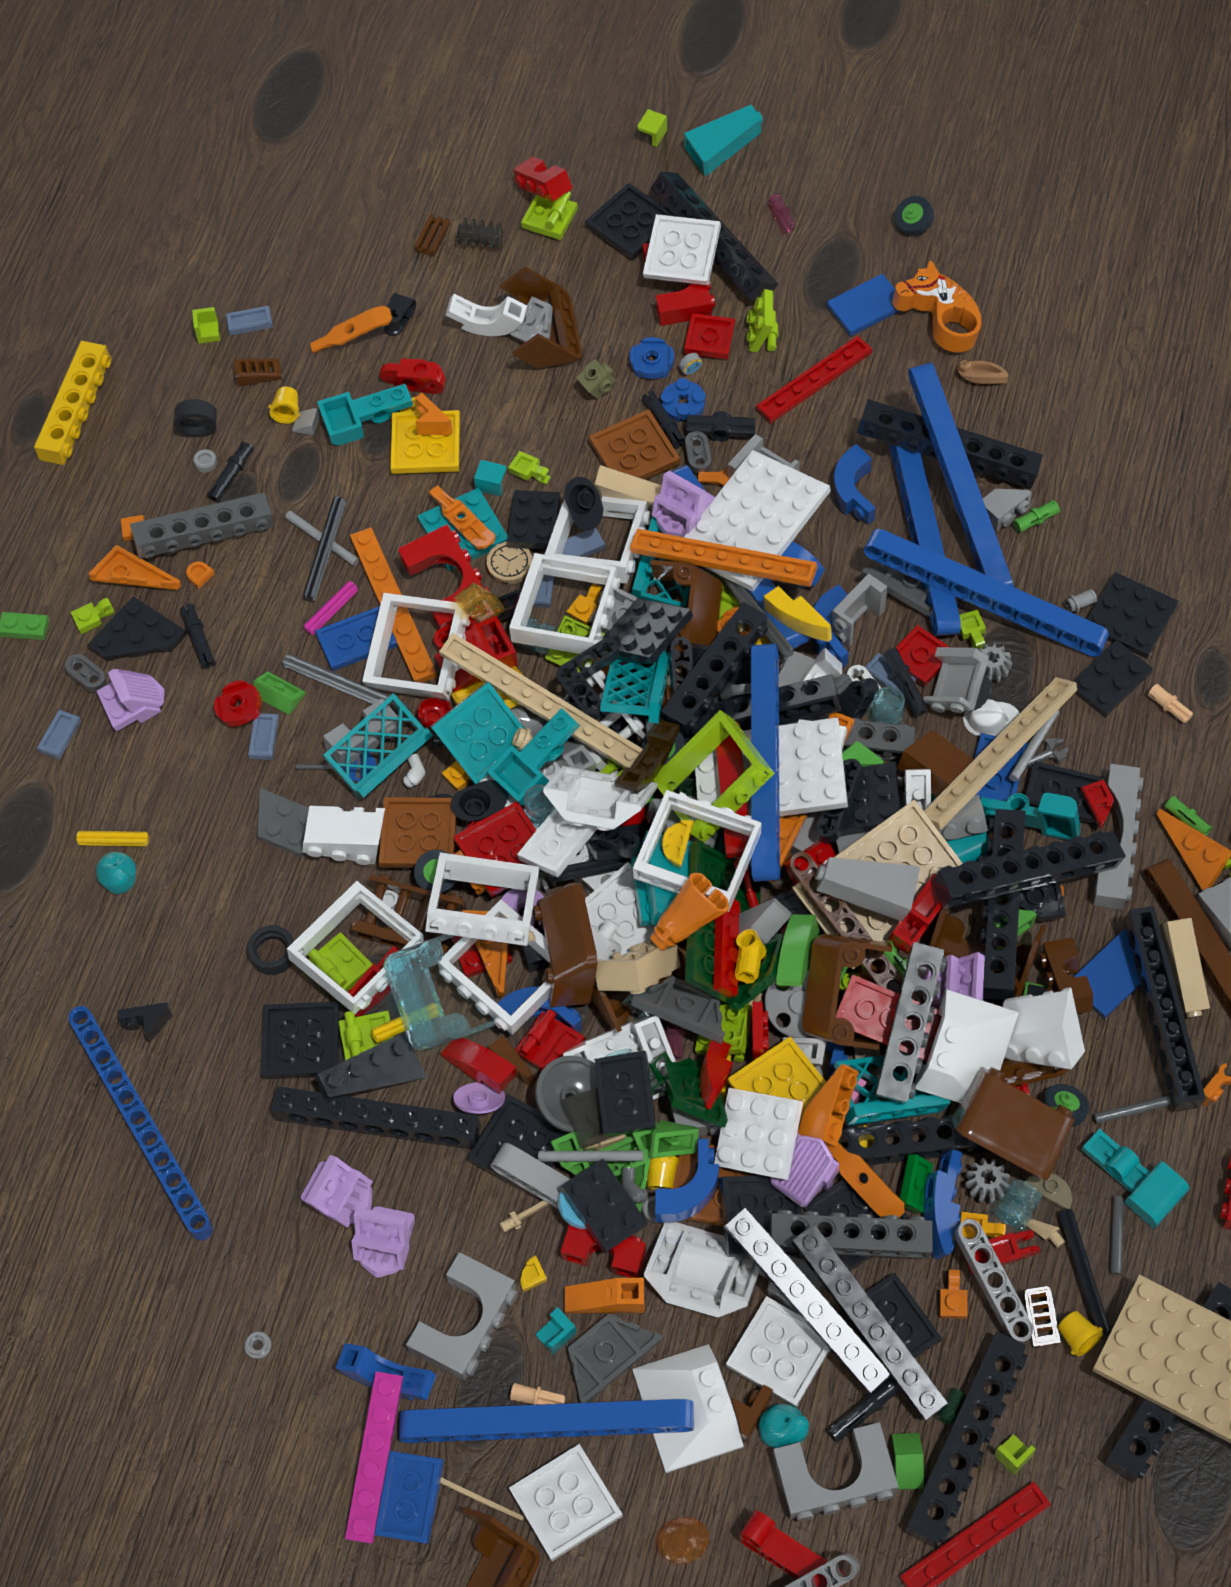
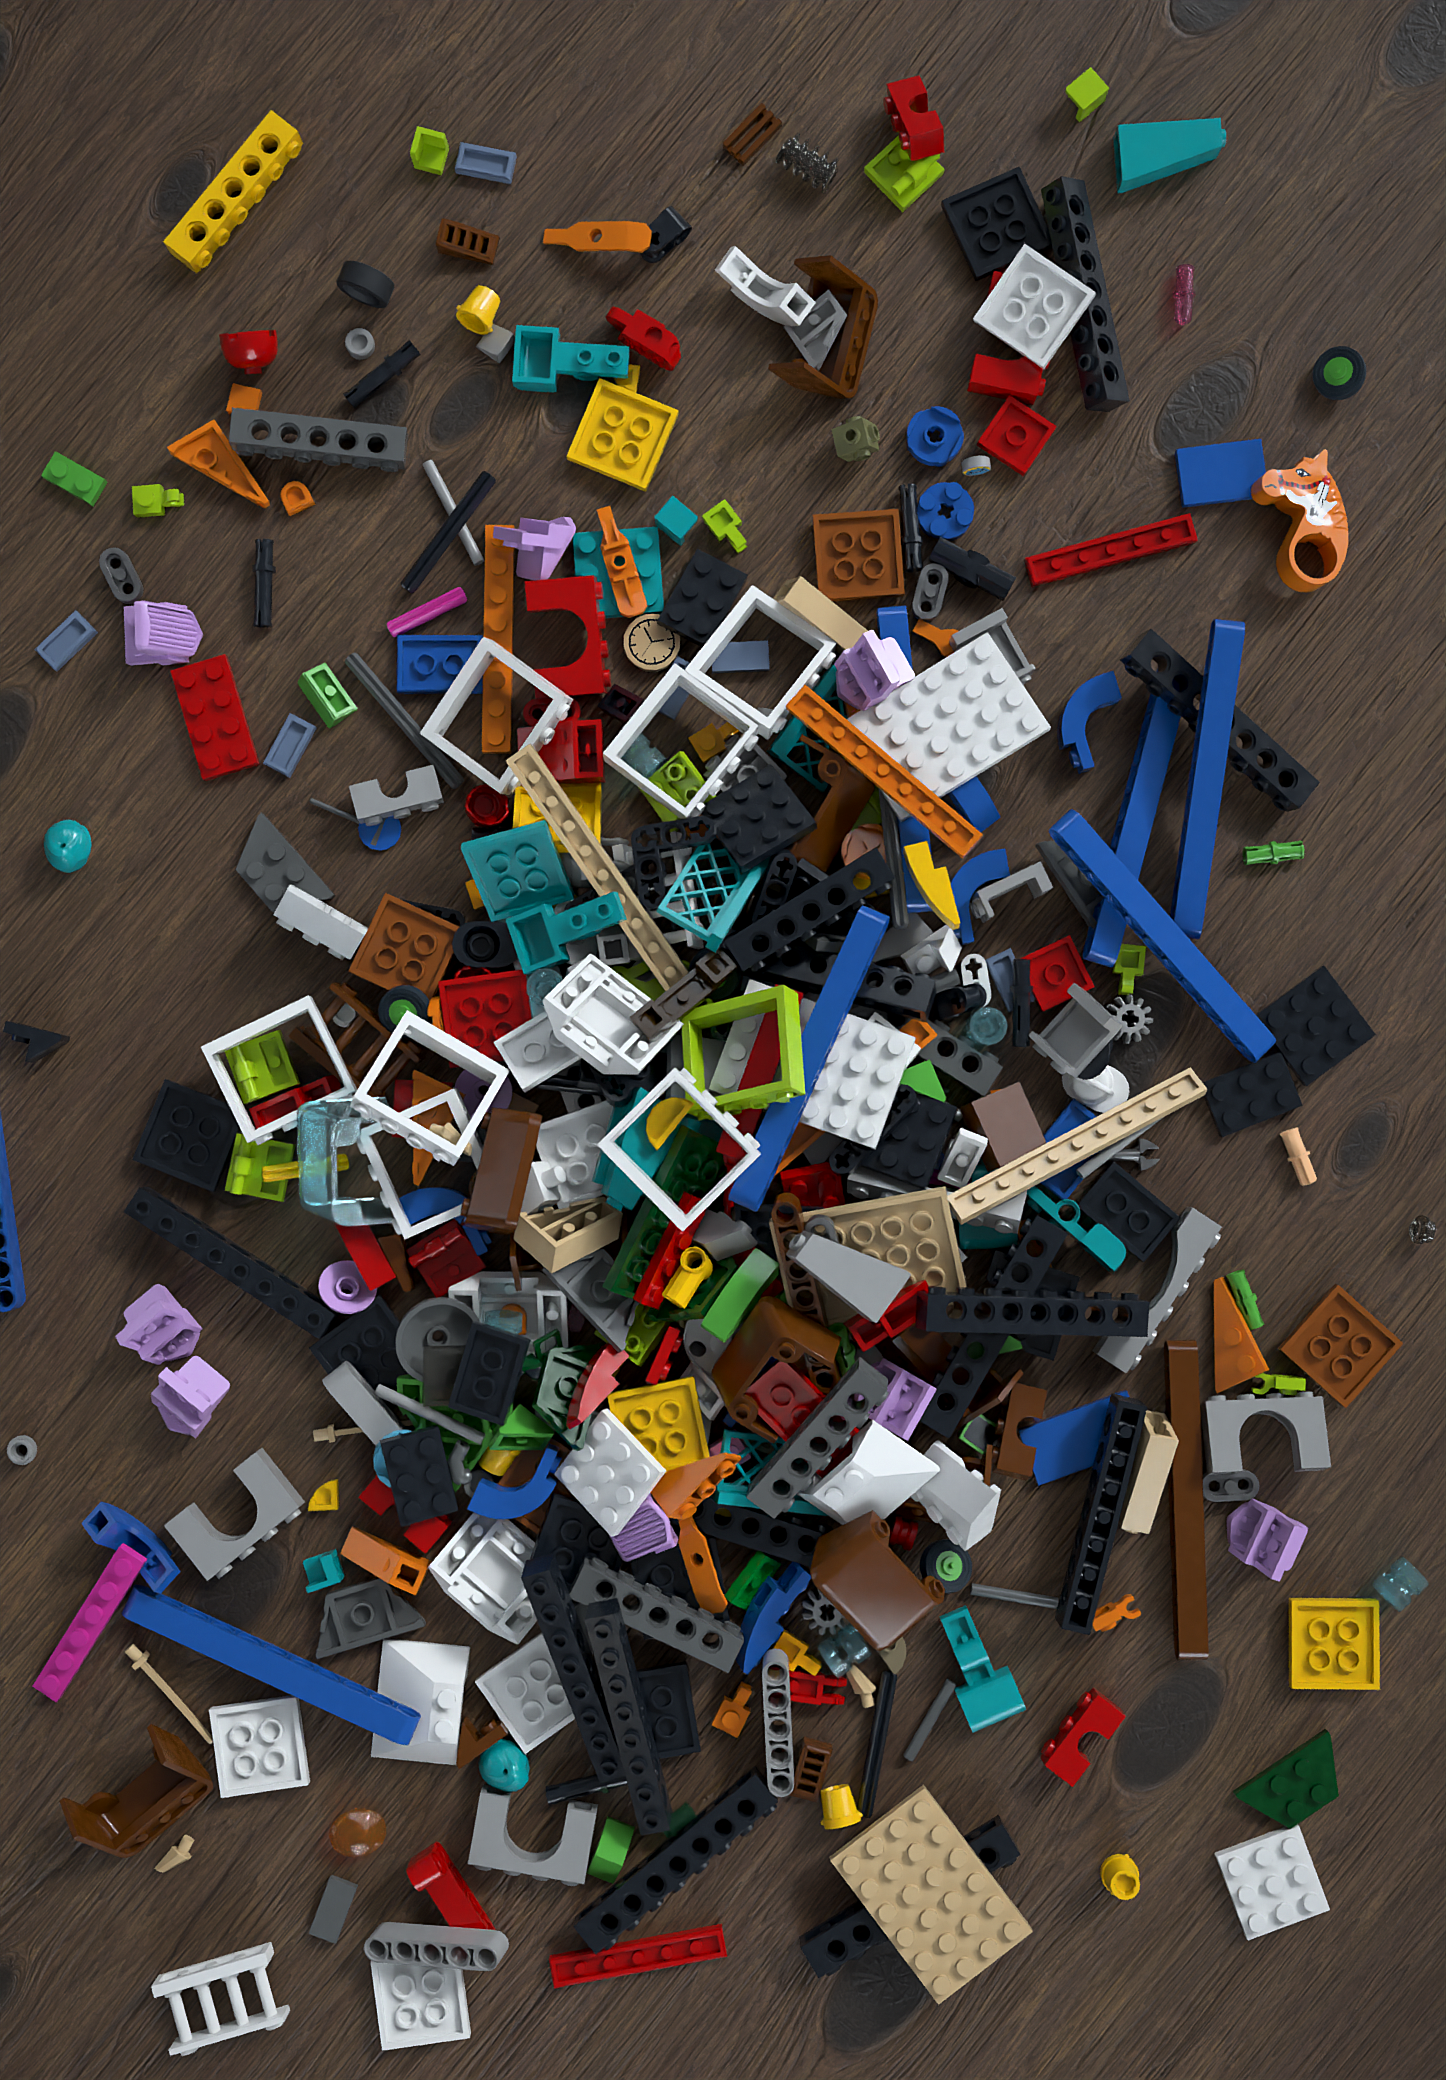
camera: 20 degrees right, 25 degrees up
(112, 838) = (78, 801): yellow axle -> none
(125, 489) = (250, 349): none -> red cylinder
(136, 632) = (197, 546): black plate -> none
(197, 740) = (215, 717): none -> red plate
(246, 711) = (284, 706): red plate -> none
(261, 935) = (180, 1003): black tyre -> none
(380, 1066) = (251, 1211): black wing -> none
(386, 765) = (415, 846): teal fence -> none
(394, 526) = (539, 544): none -> lavender piece
(409, 1497) = (109, 1675): blue tile -> none
(416, 772) = (438, 868): white arm -> none
(432, 419) = (639, 417): orange slope -> none
(479, 603) = (583, 703): clear yellow beam -> none
(522, 738) = (559, 900): tan plate -> none
(535, 1396) = (277, 1628): light nougat axle -> none
(584, 502) = (761, 619): black piece -> none
(689, 911) = (640, 1220): orange piece -> none
(762, 323) = (1084, 450): lime plate -> none
(982, 372) = (1309, 631): medium nougat arm -> none
(1005, 505) = (1243, 823): light grey slope -> none
(1014, 1454) = (716, 1895): lime panel -> none
(1075, 603) = (1267, 984): light grey pin -> none
(1098, 800) = (1157, 1243): red tile -> none

